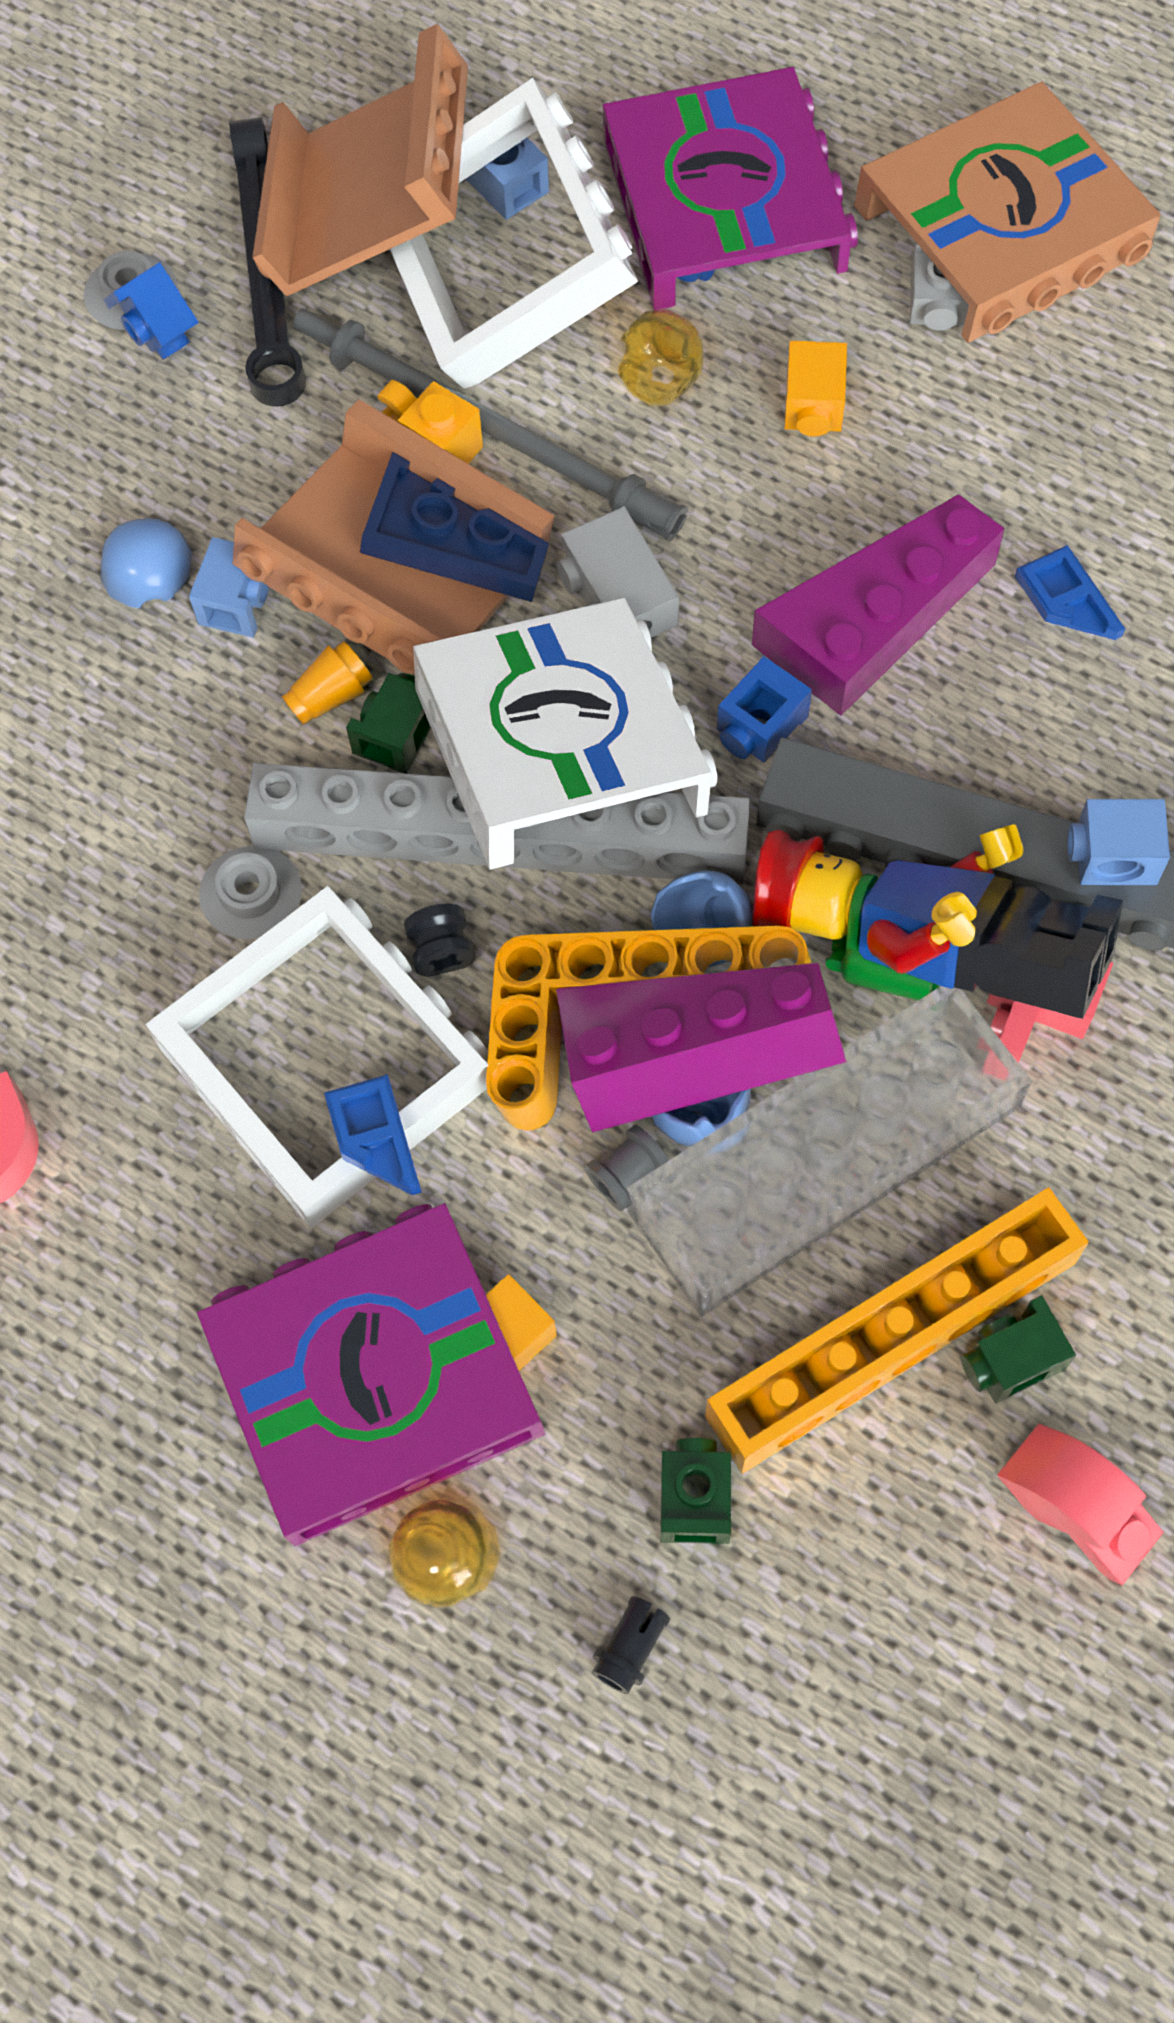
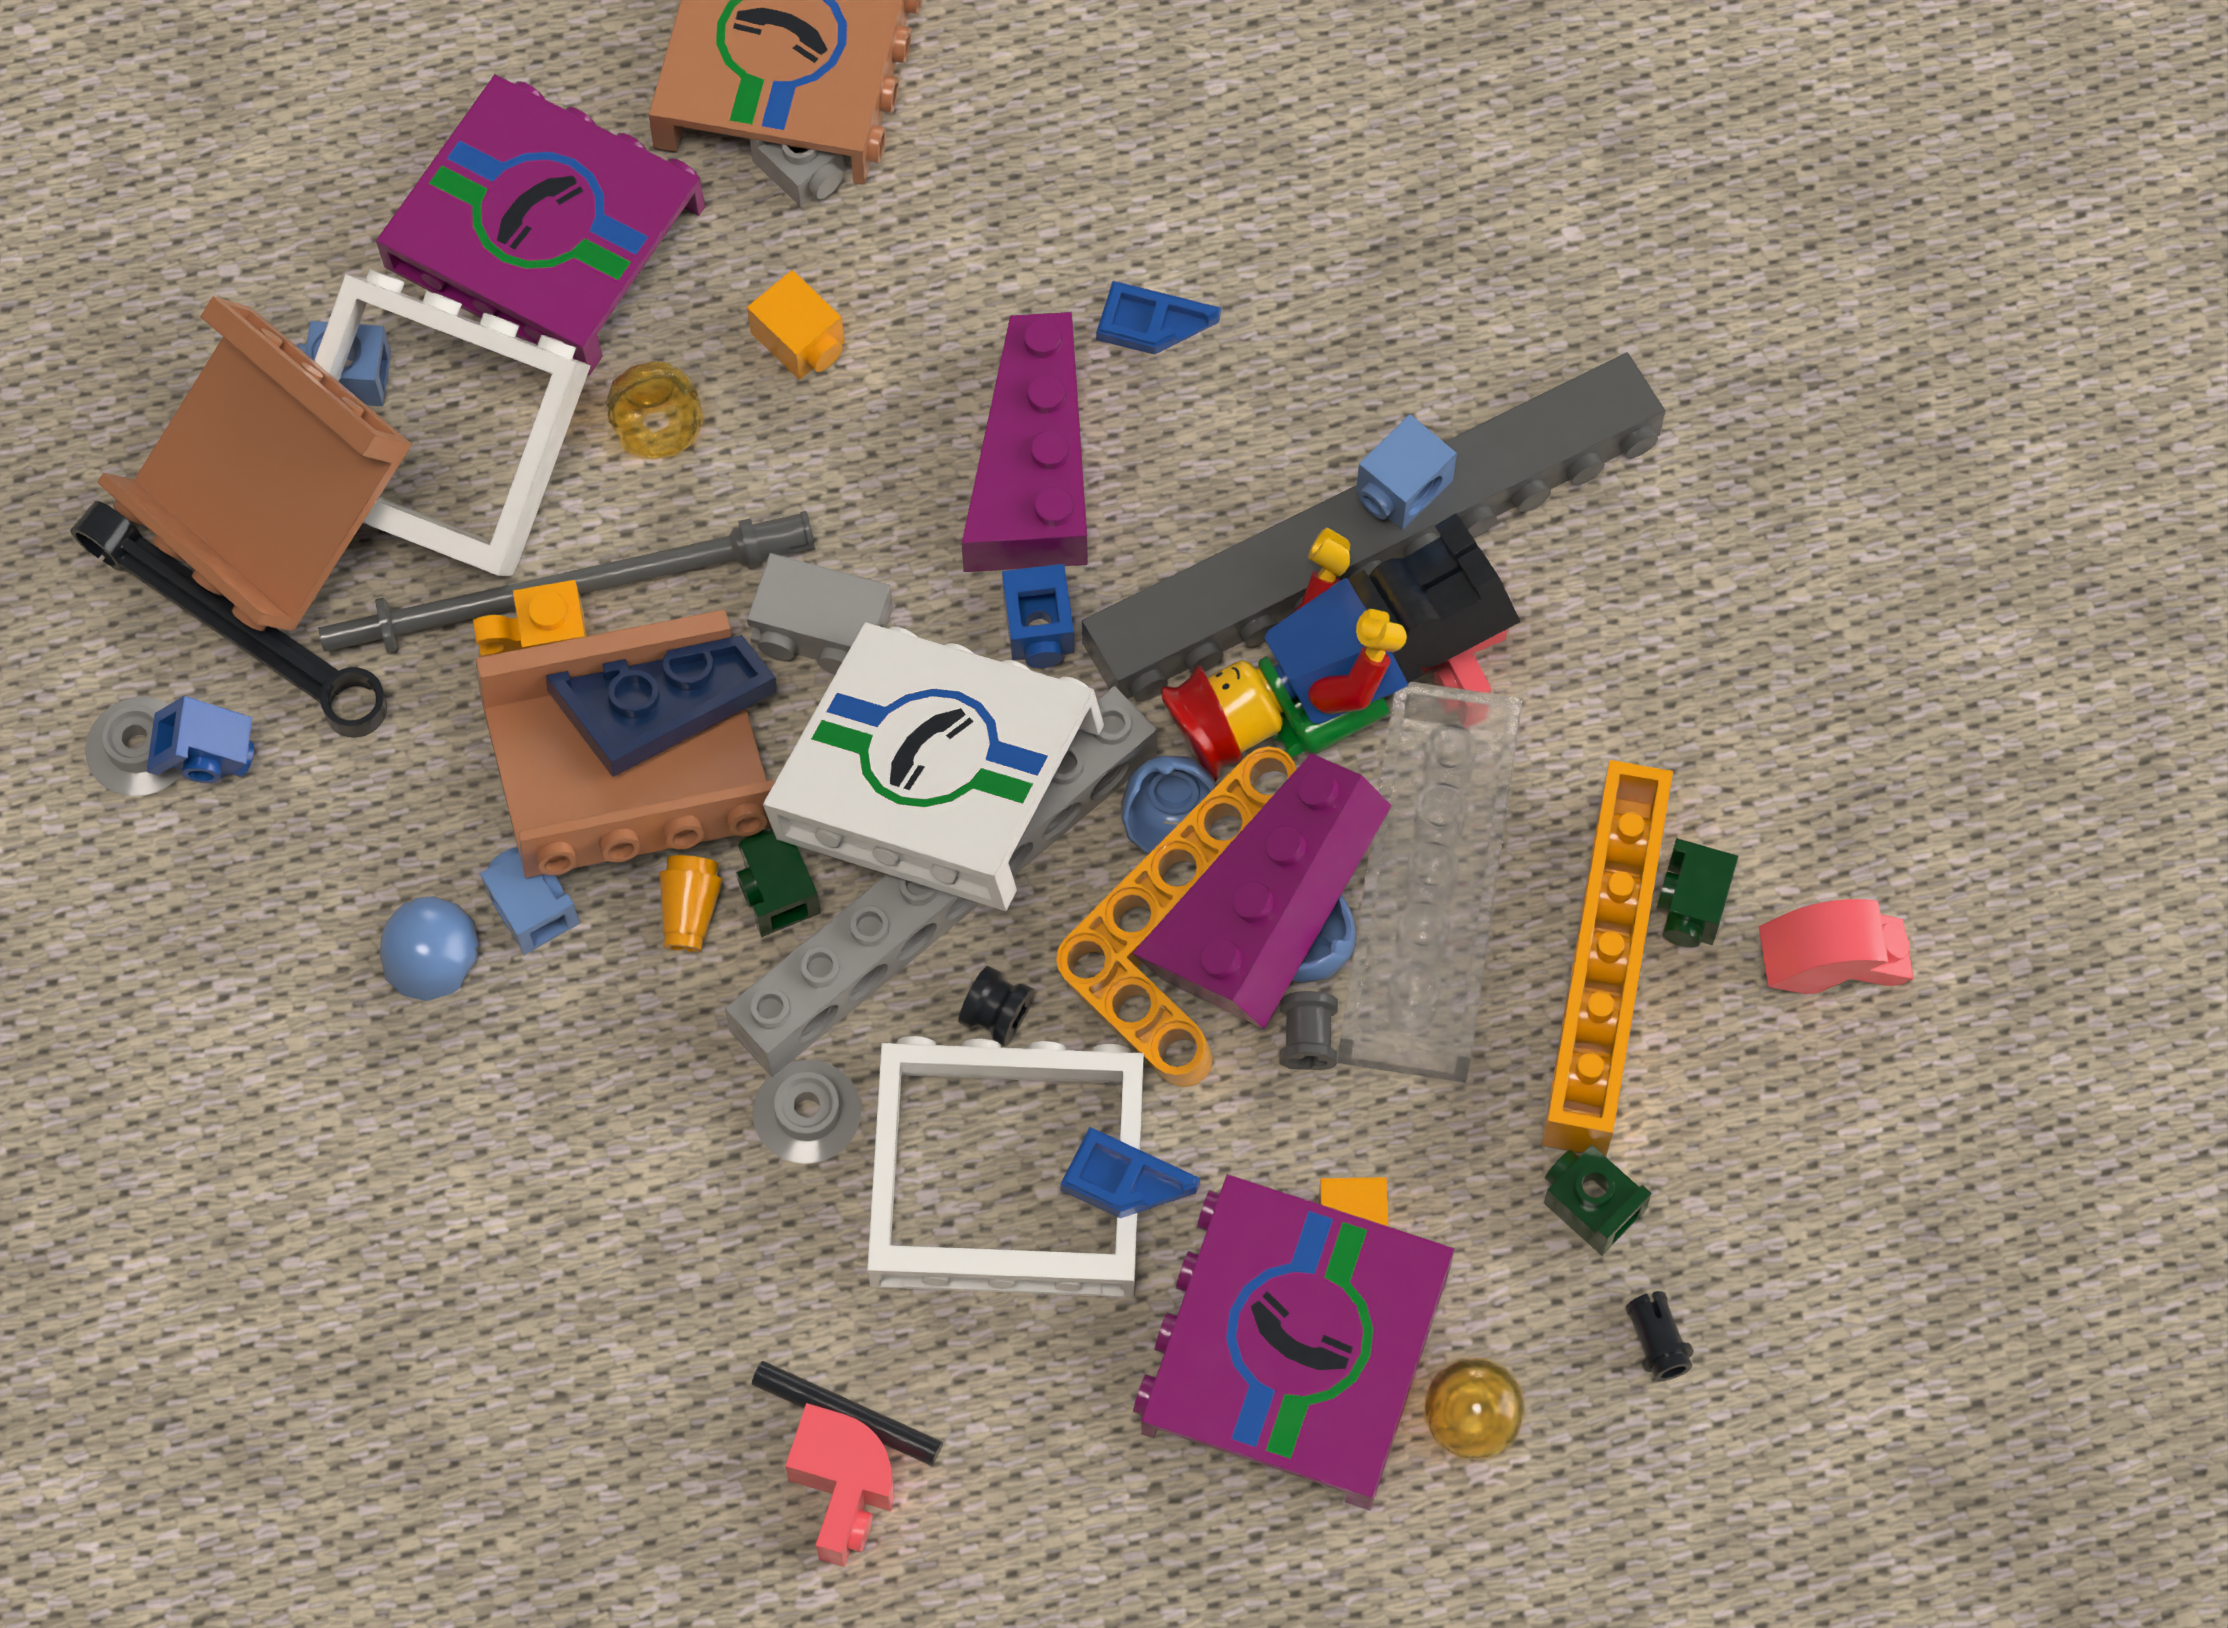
camera: 50 degrees left, 0 degrees up
(44, 1111) = (889, 1431): none -> black bar

